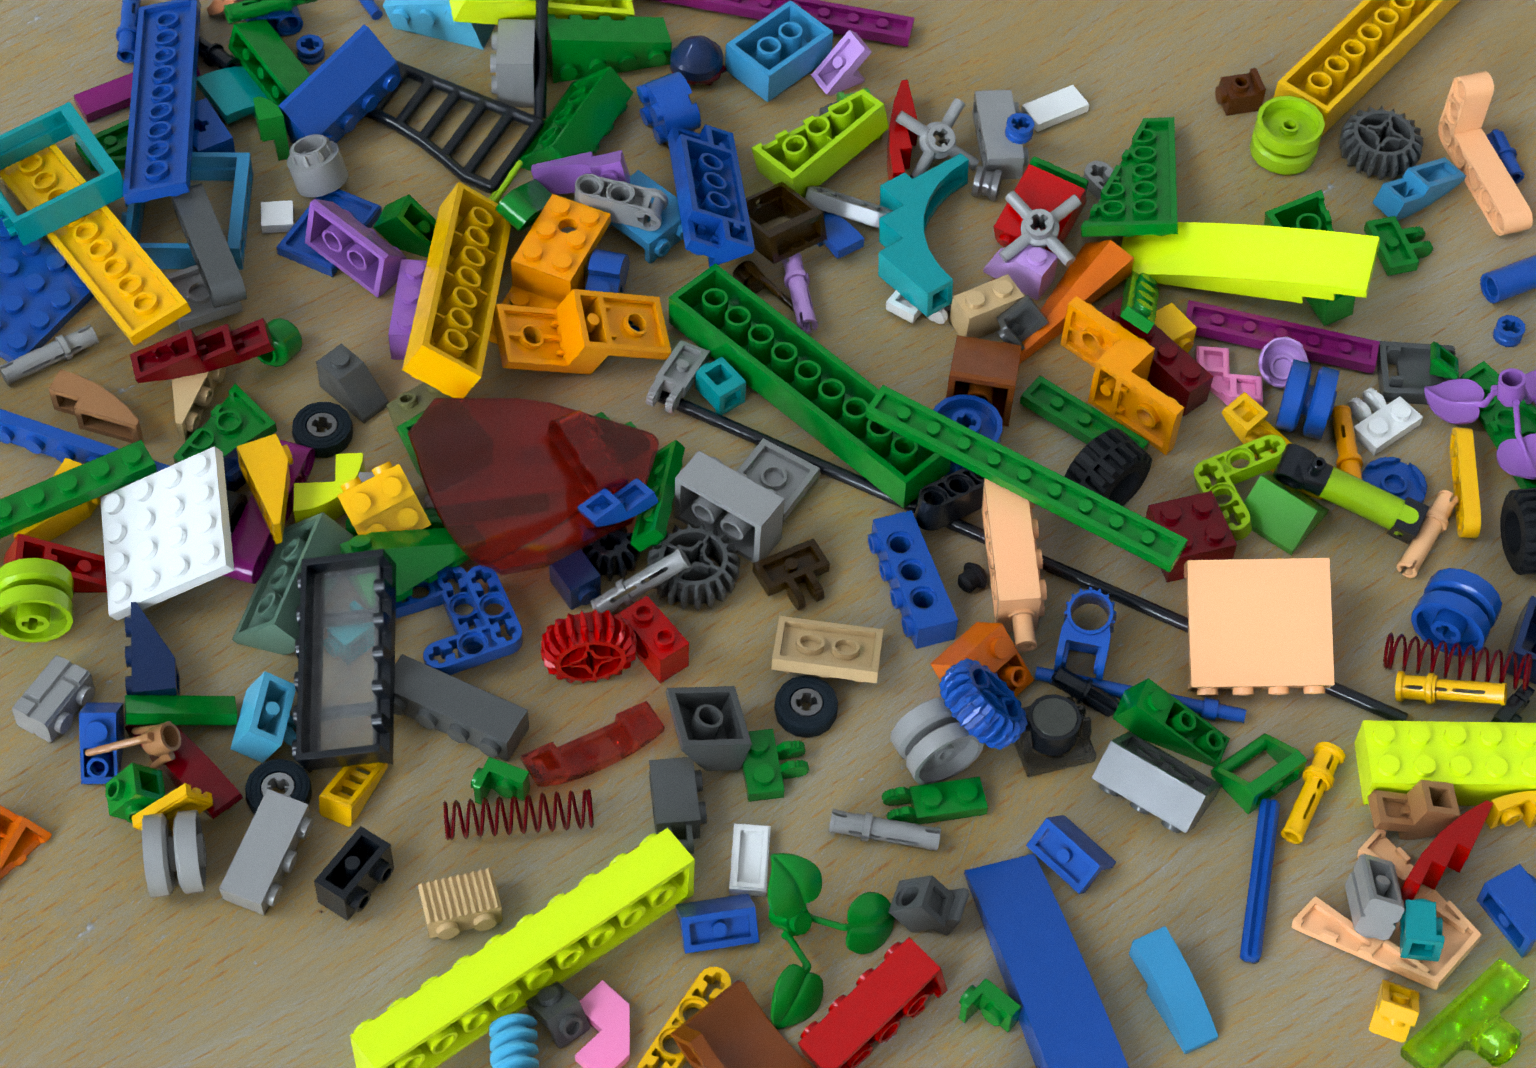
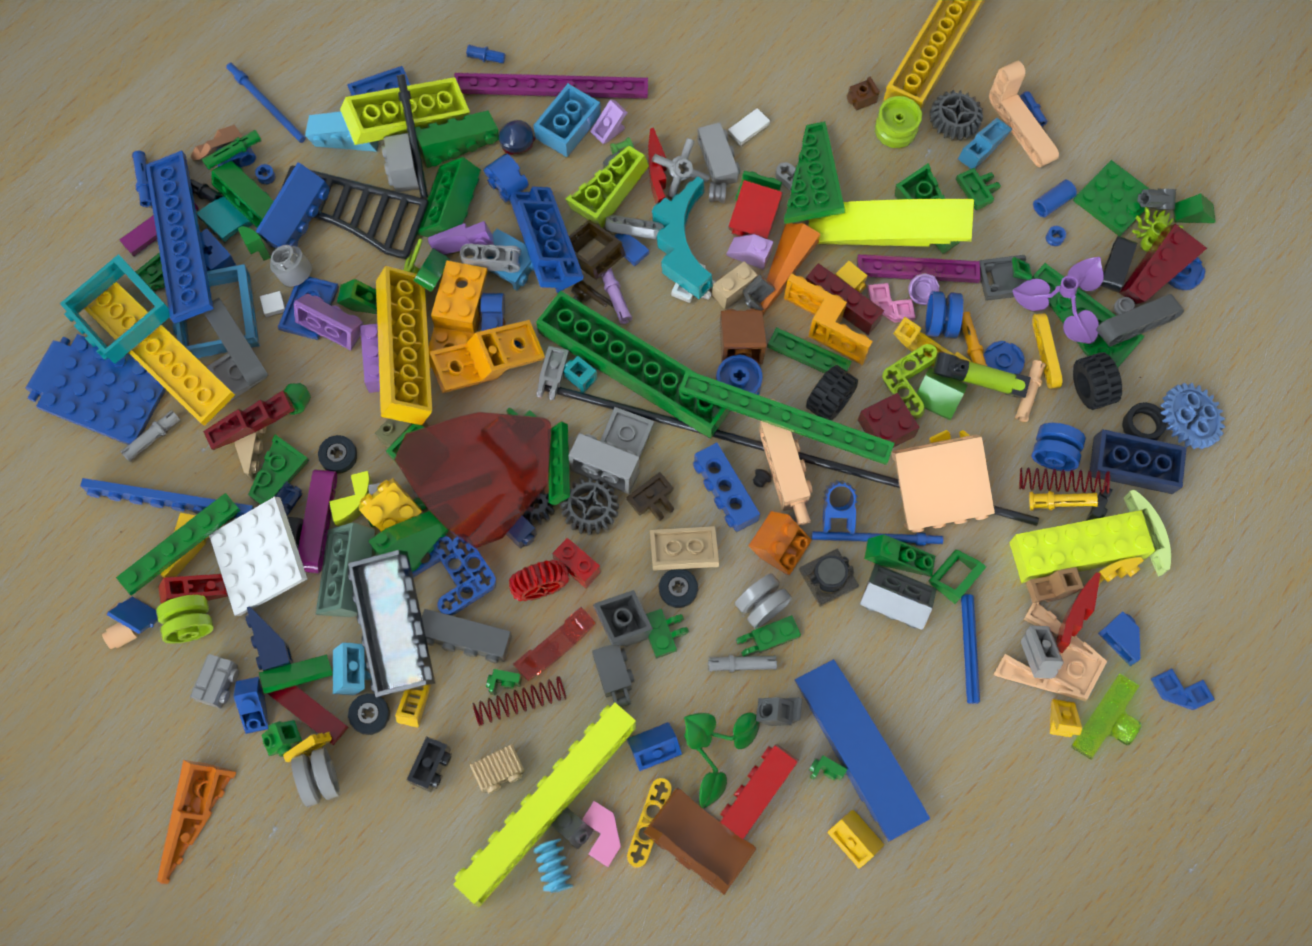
camera: 10 degrees left, 15 degrees up
(94, 407) = (188, 469): medium nougat slope -> none
(155, 739) = (288, 704): medium nougat plant -> none
(267, 852) = (372, 762): light grey brick -> none
(268, 476) = (313, 503): yellow slope -> none
(350, 383) = (348, 419): dark grey slope -> none
(610, 508) = (533, 482): blue slope -> none
(674, 562) = (553, 534): light grey pin -> none
(749, 860) = (665, 699): white tile -> none
(949, 499) = (736, 432): black beam -> none
(983, 704) = (788, 575): blue gear -> none
(1013, 124) = (731, 146): blue bush -> none
(1036, 237) = (759, 233): light grey bar -> none
(1069, 852) = (856, 654): blue panel -> none
(1084, 691) = (843, 544): black axle -> none
(1140, 301) = (830, 266): green plate -> none
(1173, 989) = (933, 735): dark azure slope -> none
(1317, 779) = (993, 575): yellow pin -> none
(1385, 425) = (992, 318): white hinge -> none
(1421, 931) = (1073, 669): teal brick -> none

